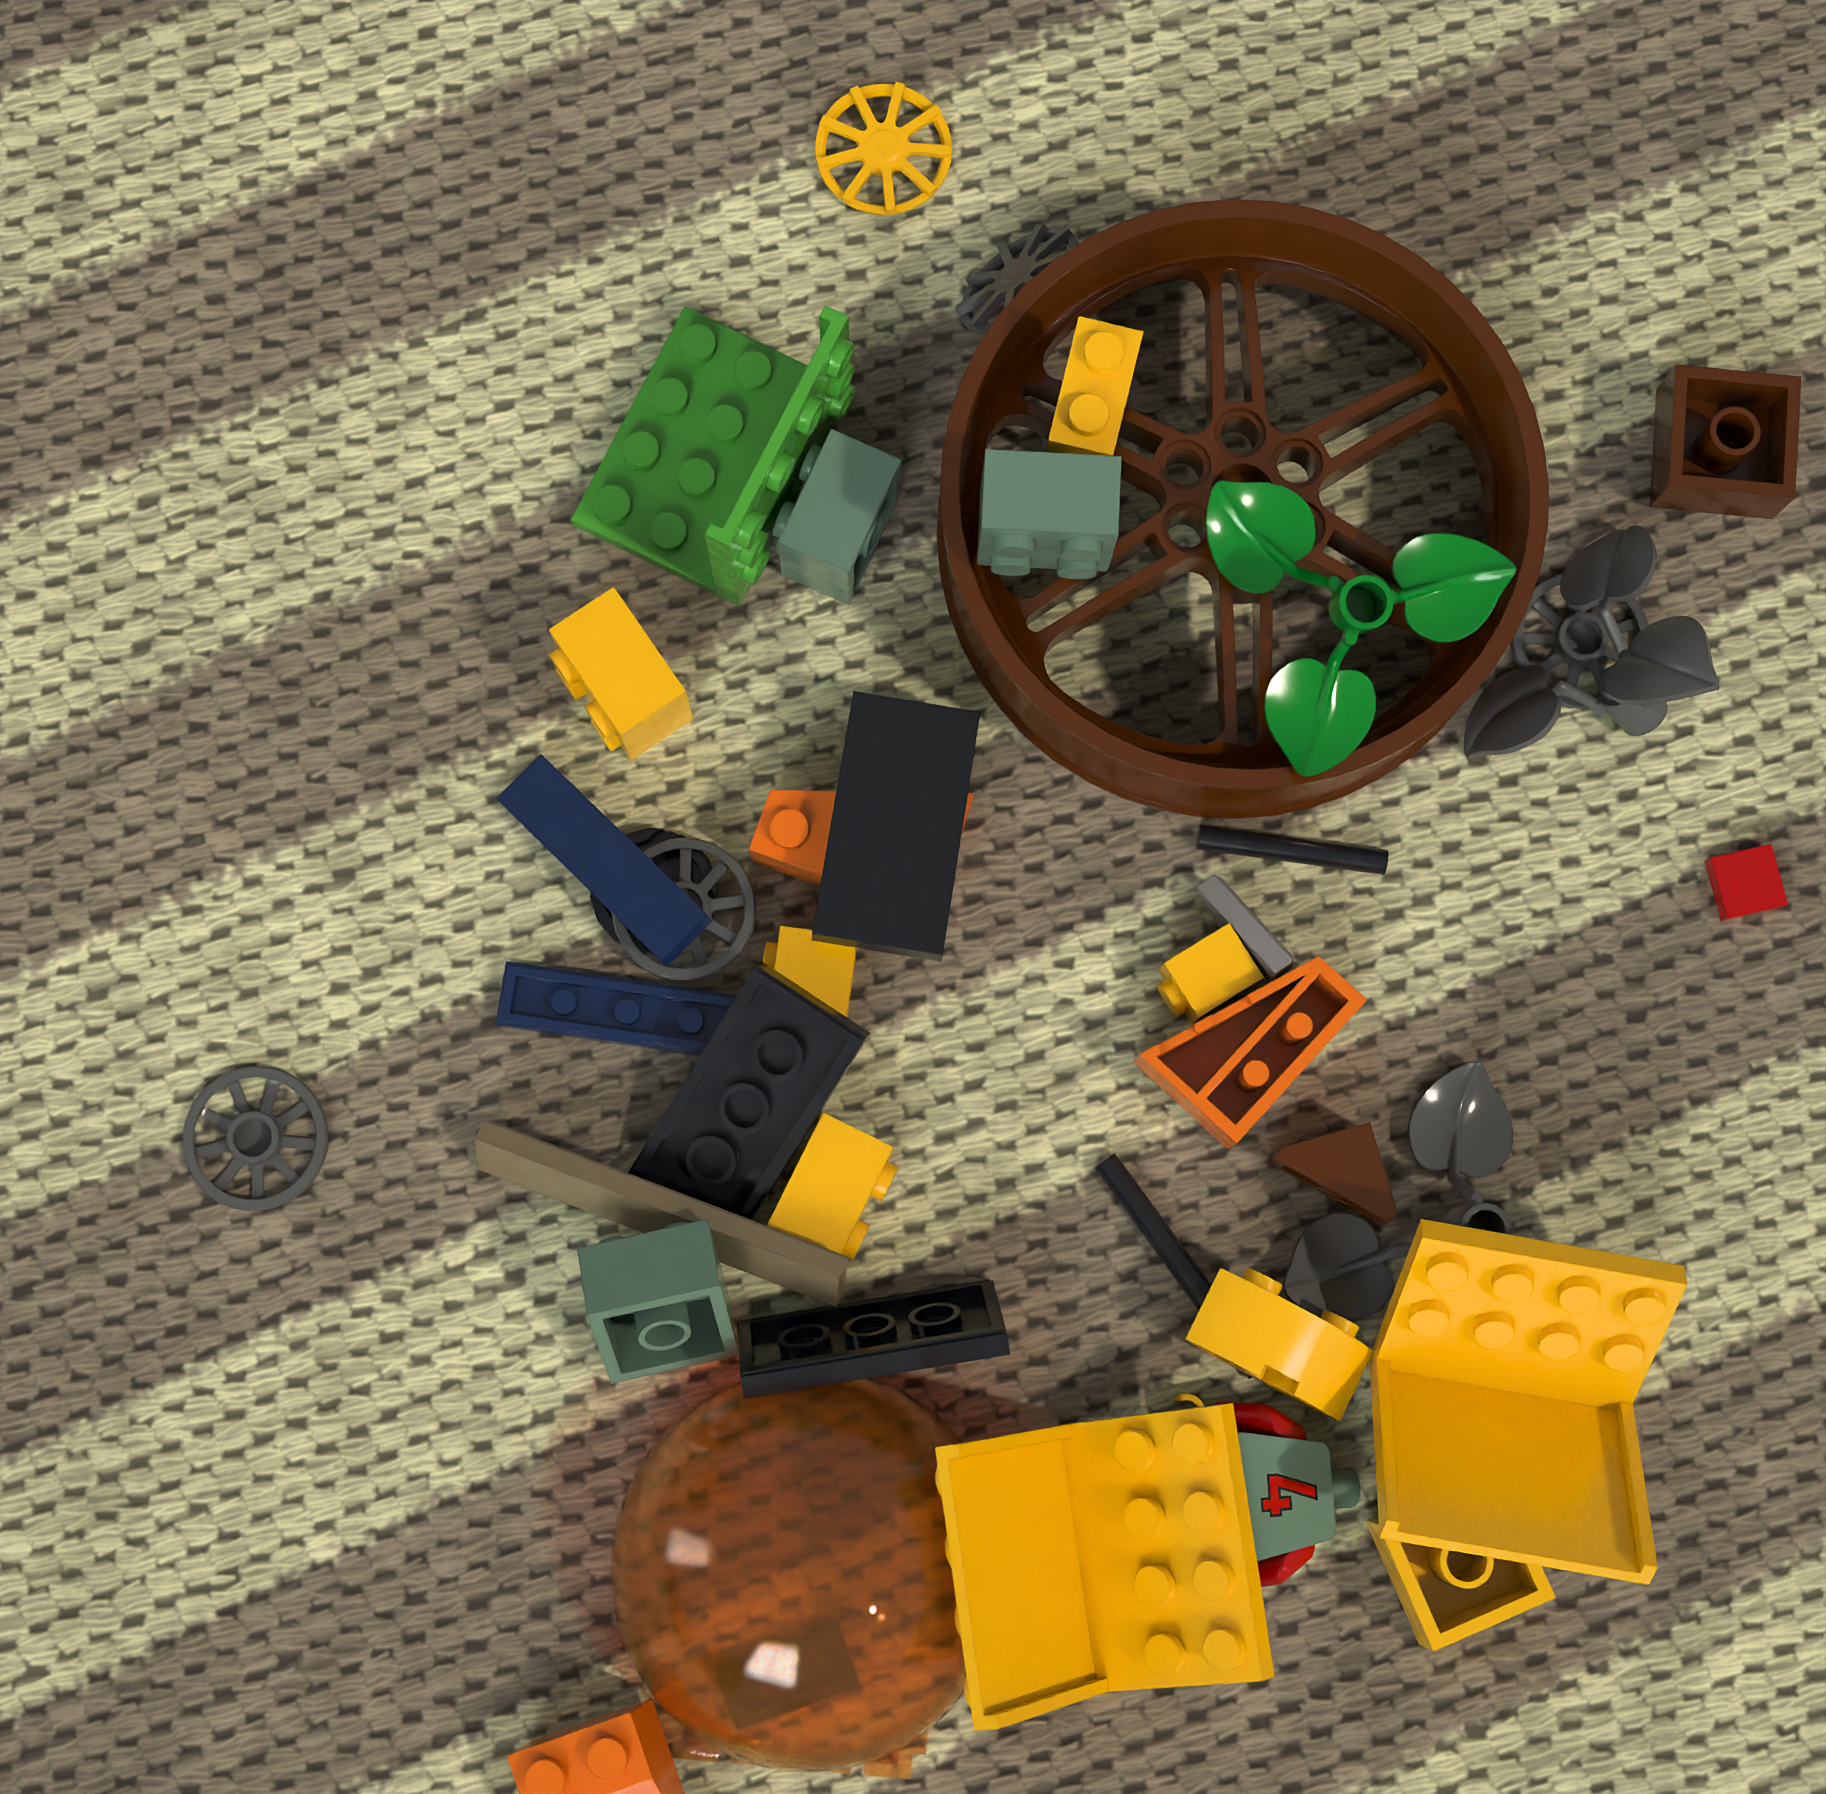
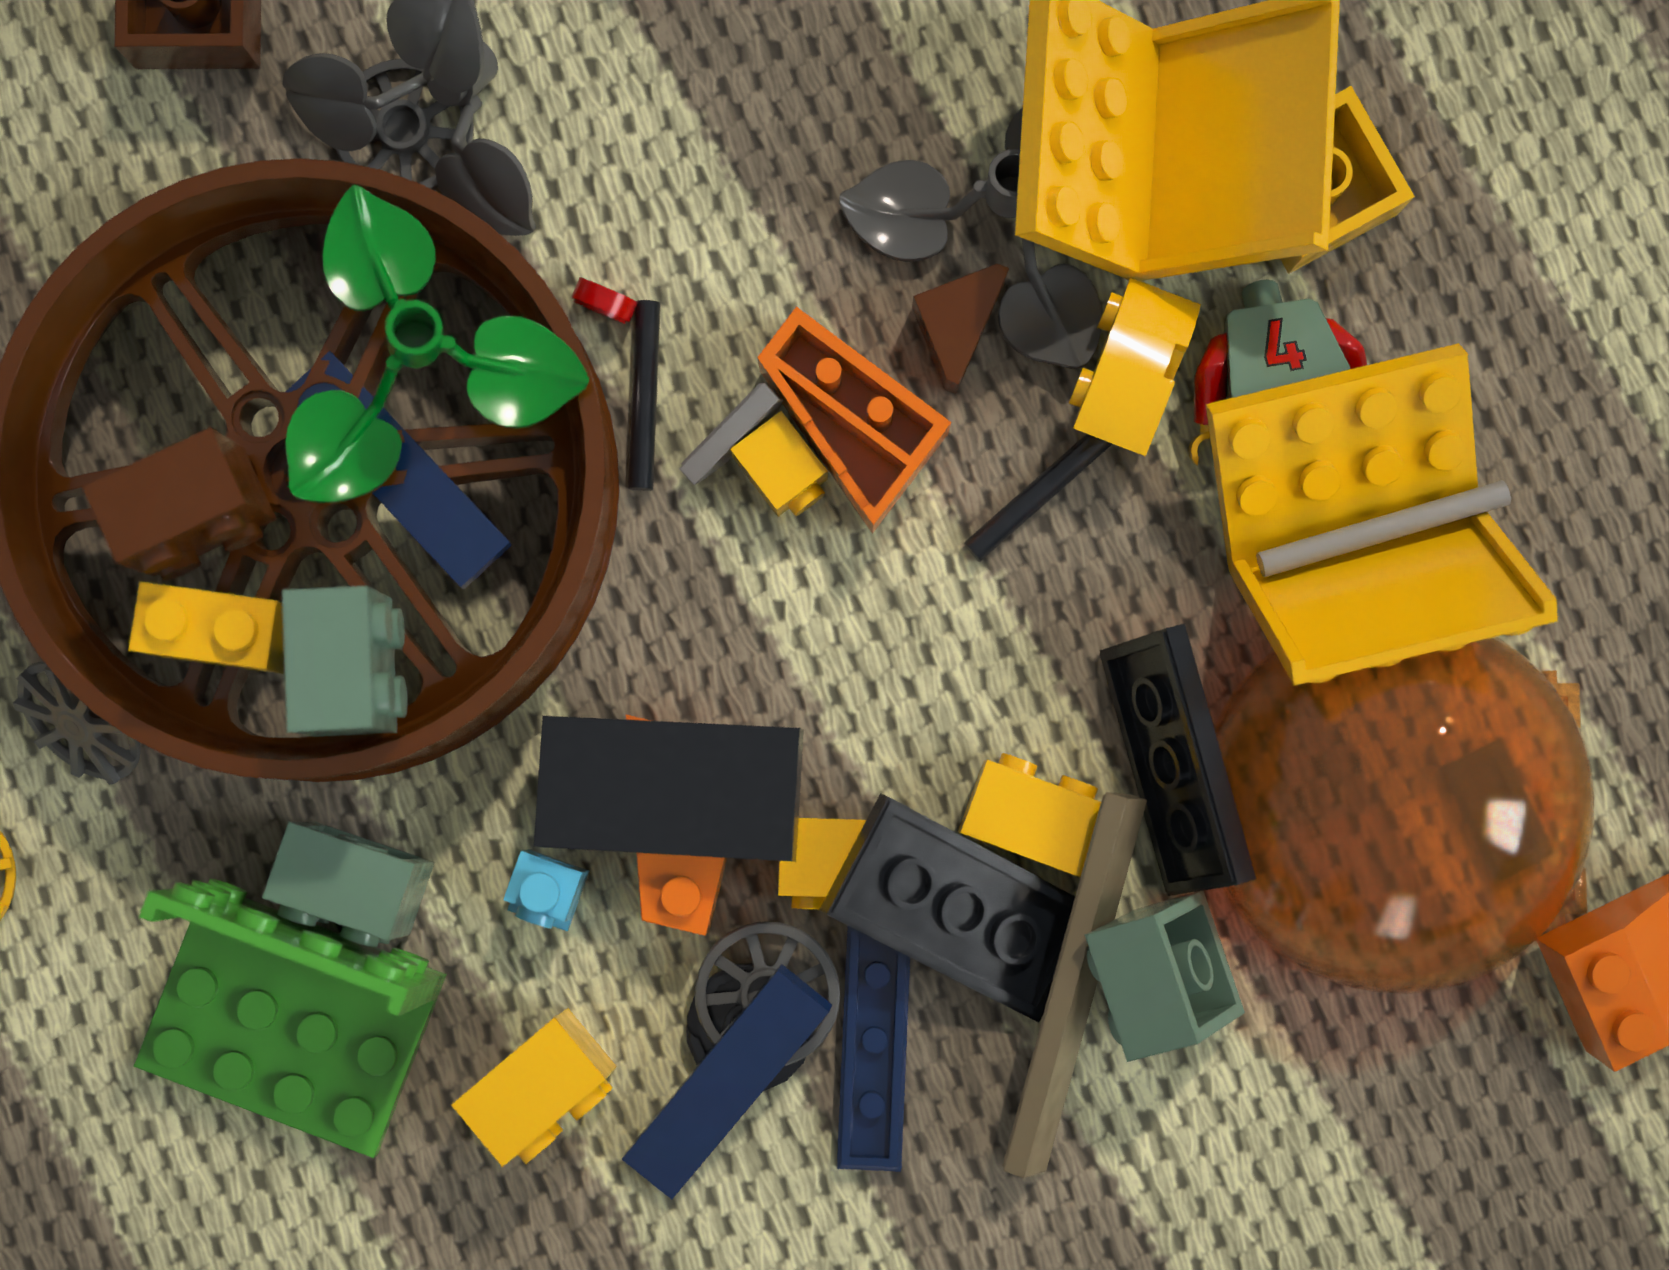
camera: 90 degrees left, 5 degrees up
(810, 704) = (545, 890): none -> medium azure brick
(1089, 1583) = (1383, 528): none -> light grey bar
(1199, 617) = (428, 501): none -> dark blue tile
(1213, 376) = (180, 505): none -> reddish brown brick
(1389, 817) = (603, 301): none -> red tile

